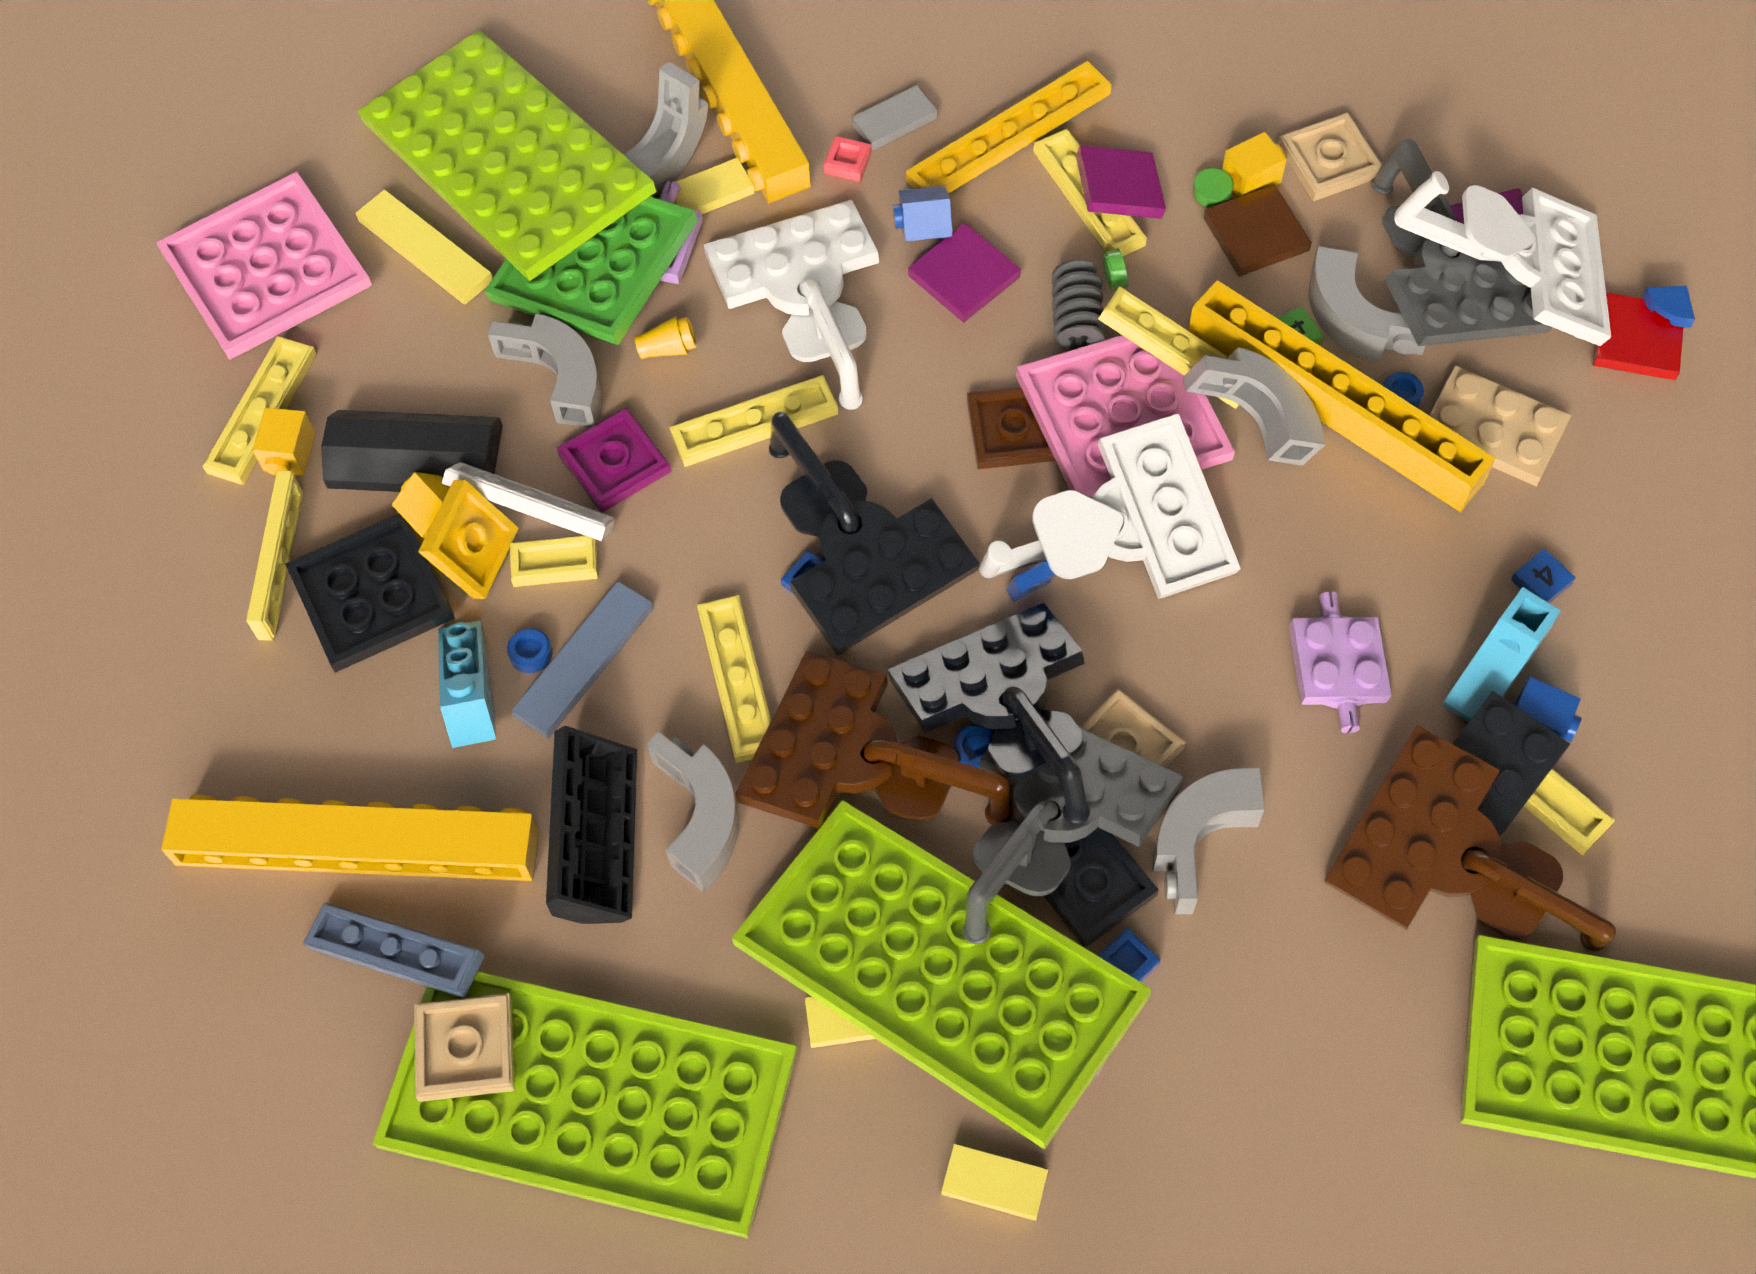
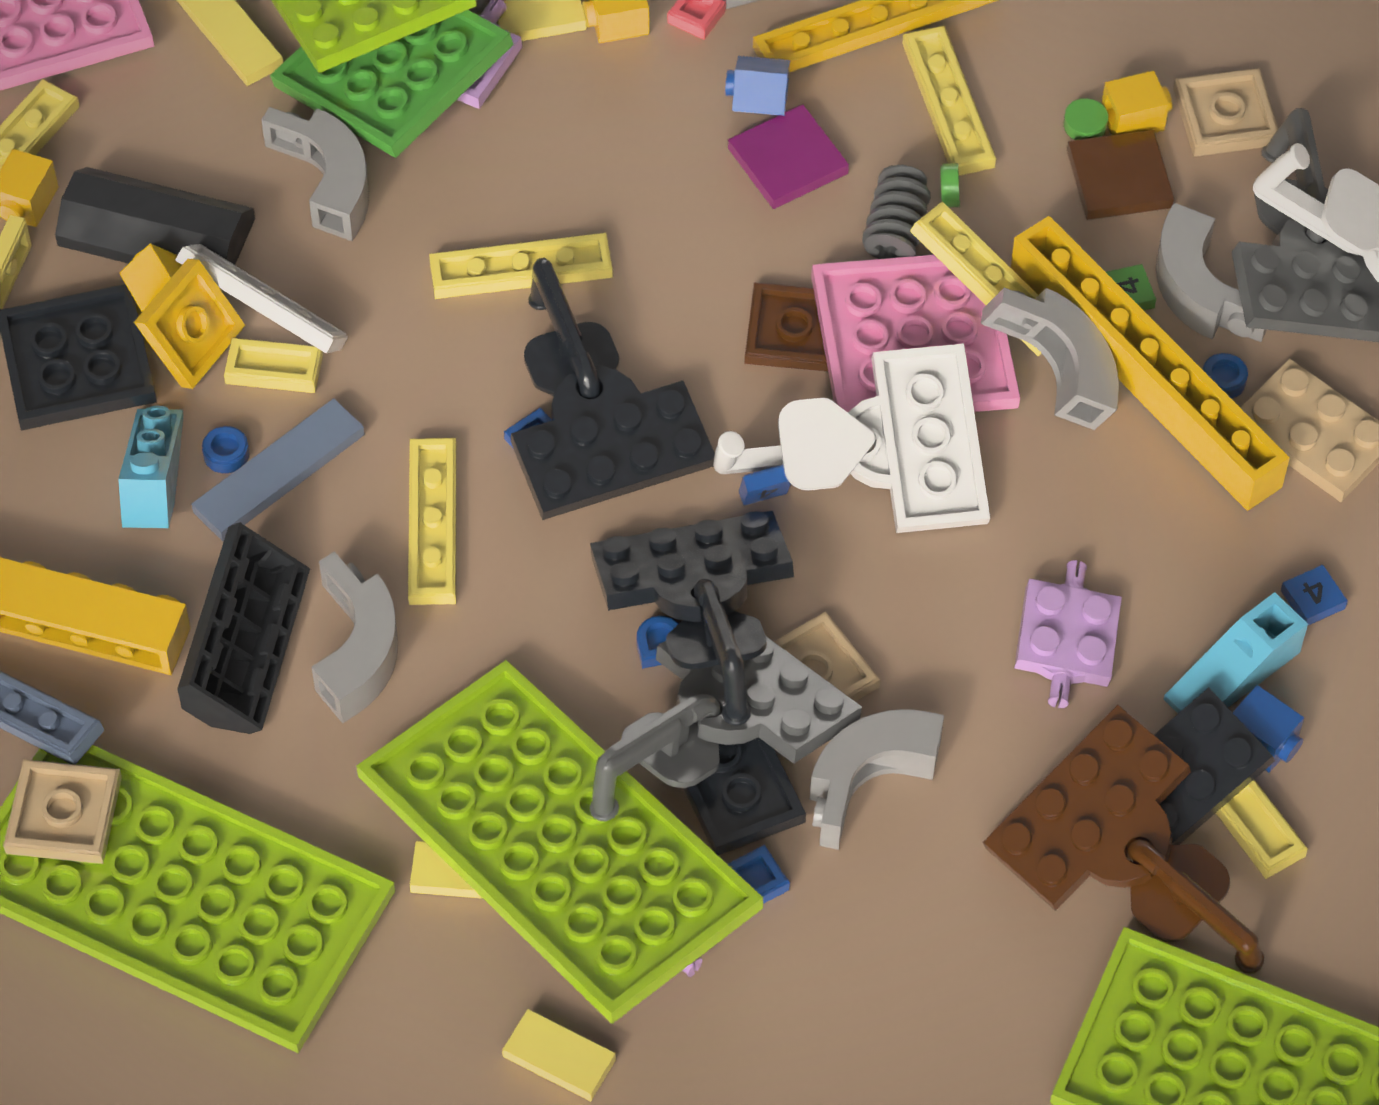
camera: 10 degrees right, 5 degrees down
(613, 459) = (362, 276): magenta tile -> none
(667, 339) = (452, 163): yellow cone -> none
(801, 272) = (611, 123): white plate -> none
(820, 746) = (516, 600): reddish brown plate -> none
(1120, 182) = (983, 93): magenta tile -> none

